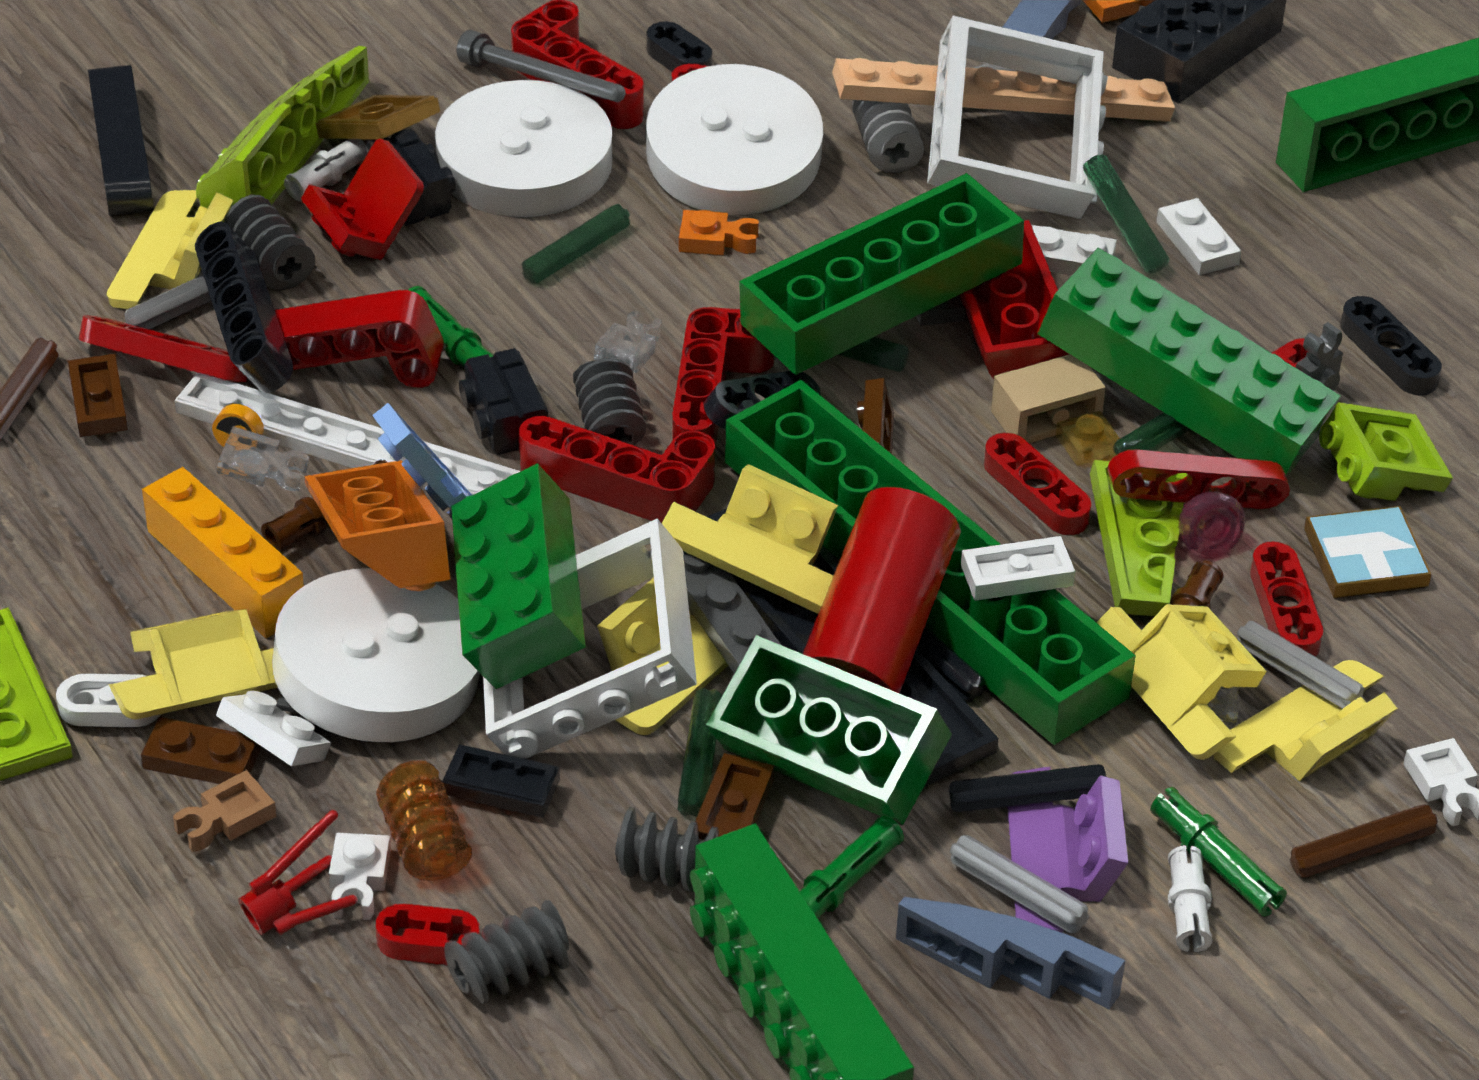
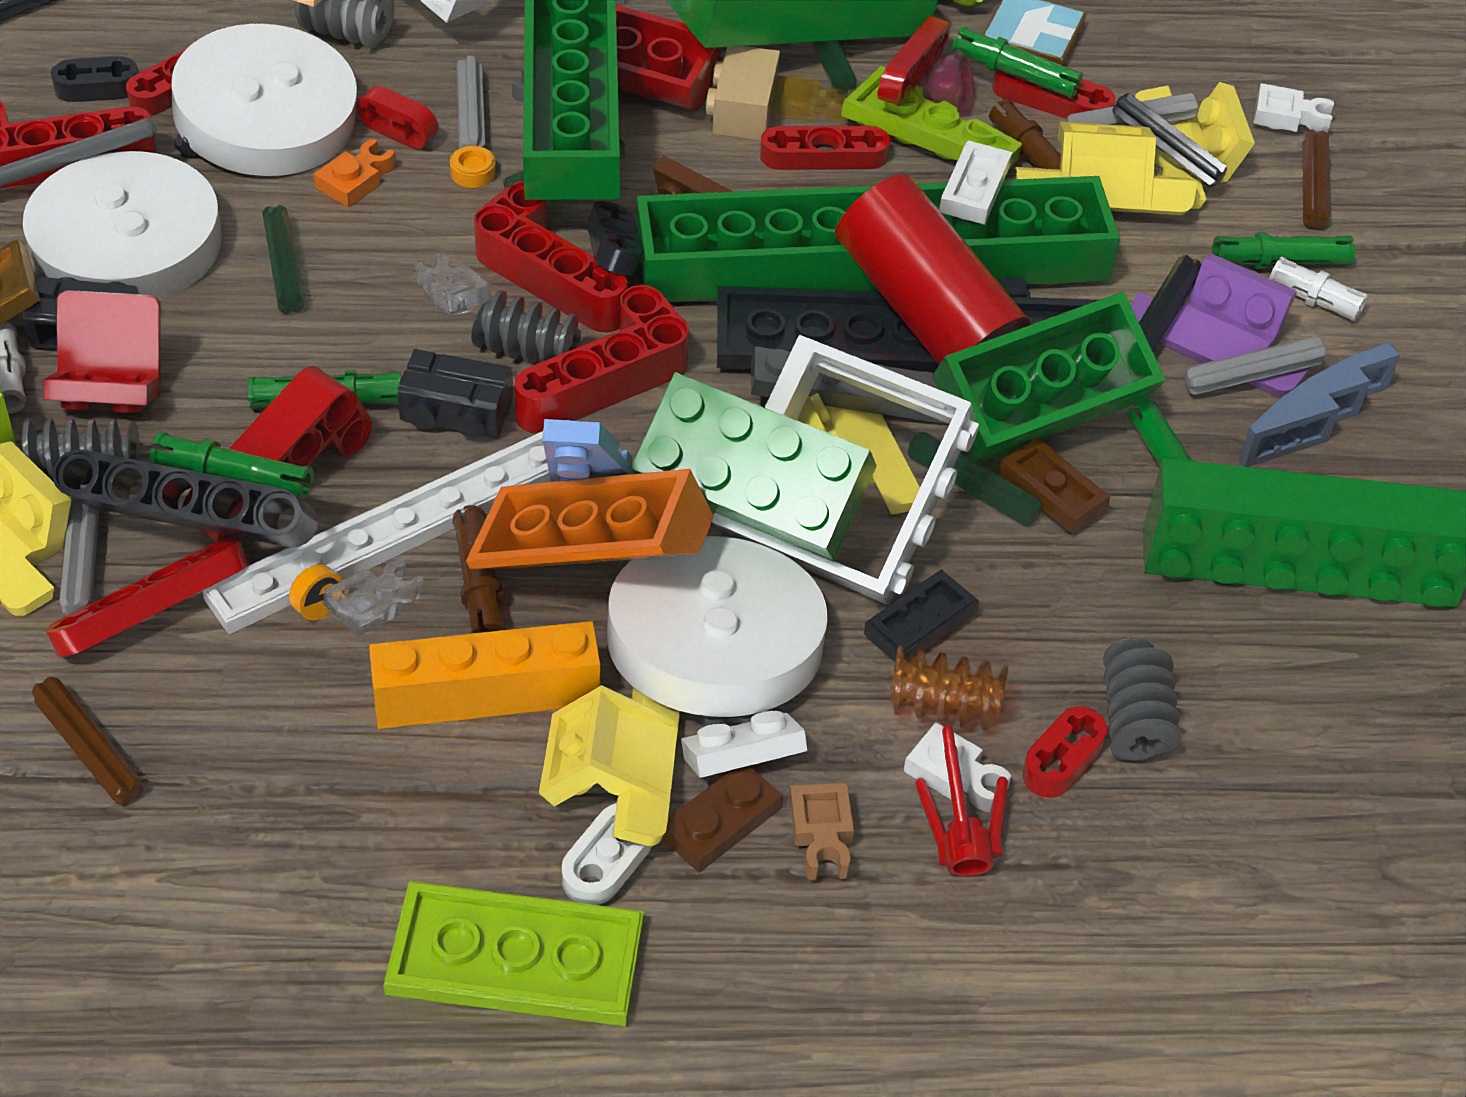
camera: 60 degrees left, 5 degrees up
(97, 395) = (163, 677): reddish brown plate -> none
(287, 300) = (213, 459): none -> green pin
(658, 851) = (1090, 544): dark grey piece -> none
(763, 537) = (792, 298): light yellow plate -> none
(796, 218) = (397, 117): none -> red beam
(1267, 533) = (1001, 56): none -> green pin
(1275, 699) = (1171, 140): none -> axle

